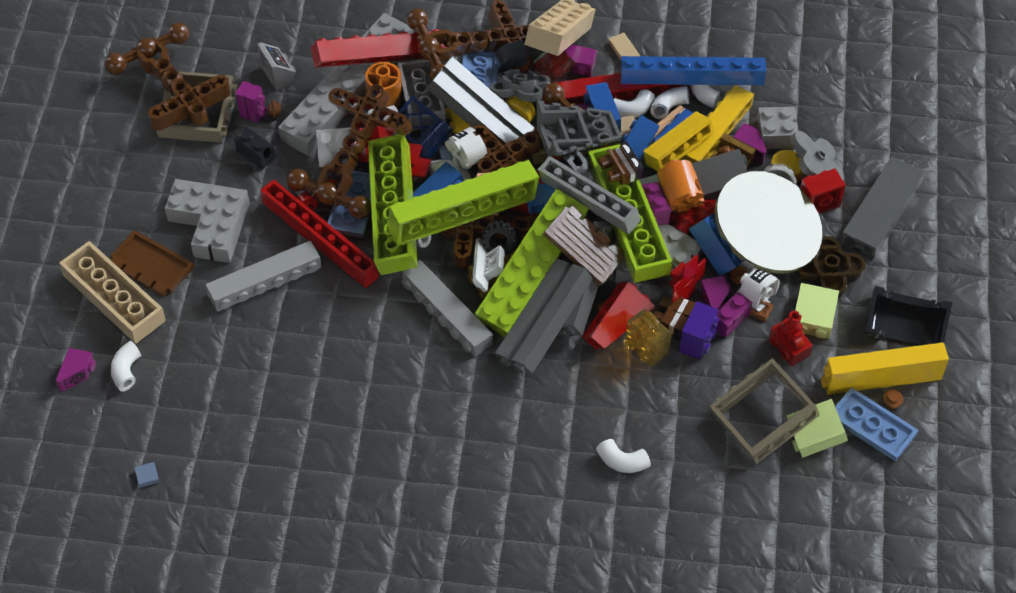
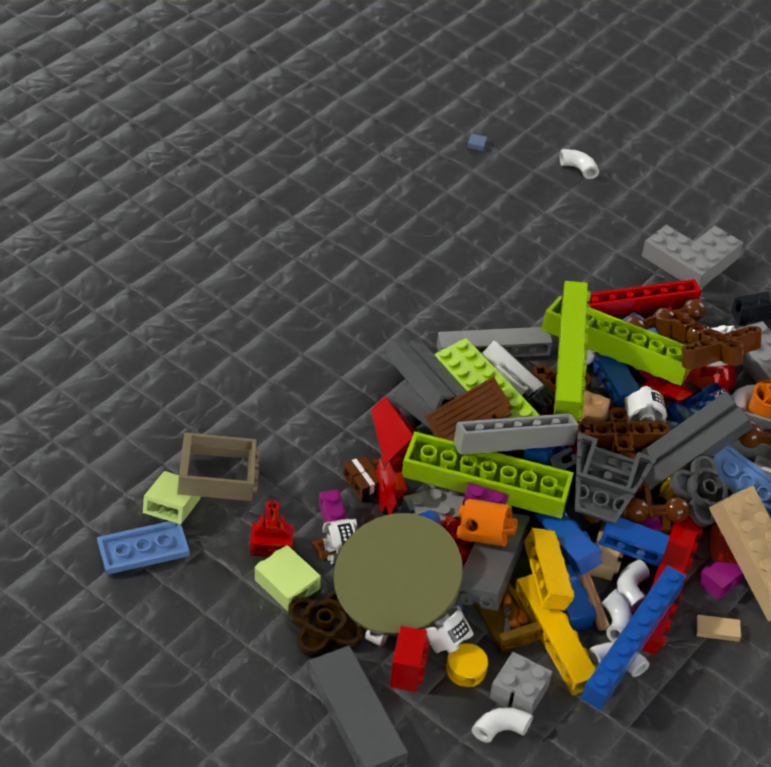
camera: 120 degrees right, 10 degrees down
(75, 368) = (597, 140): magenta slope -> none
(112, 292) = (652, 176): tan brick -> none
(151, 263) = (673, 211): reddish brown hinge -> none
(263, 276) = (608, 254): light grey brick -> none
(622, 461) = (262, 367): white cylinder -> none
(623, 163) = (528, 472): reddish brown hips -> none
(647, 337) = (355, 435): clear yellow brick -> none
(699, 331) = (333, 471): dark purple brick -> none
(715, 291) = (362, 511): magenta slope -> none
(753, 138) = (523, 644): magenta slope -> none
(814, 127) = (500, 720): none -> white cylinder
(814, 155) = (461, 699): plant -> none
(885, 368) = (179, 579): yellow brick -> none
(893, 399) = (152, 579): dark orange plate -> none
(907, 318) = (223, 644): black windscreen -> none

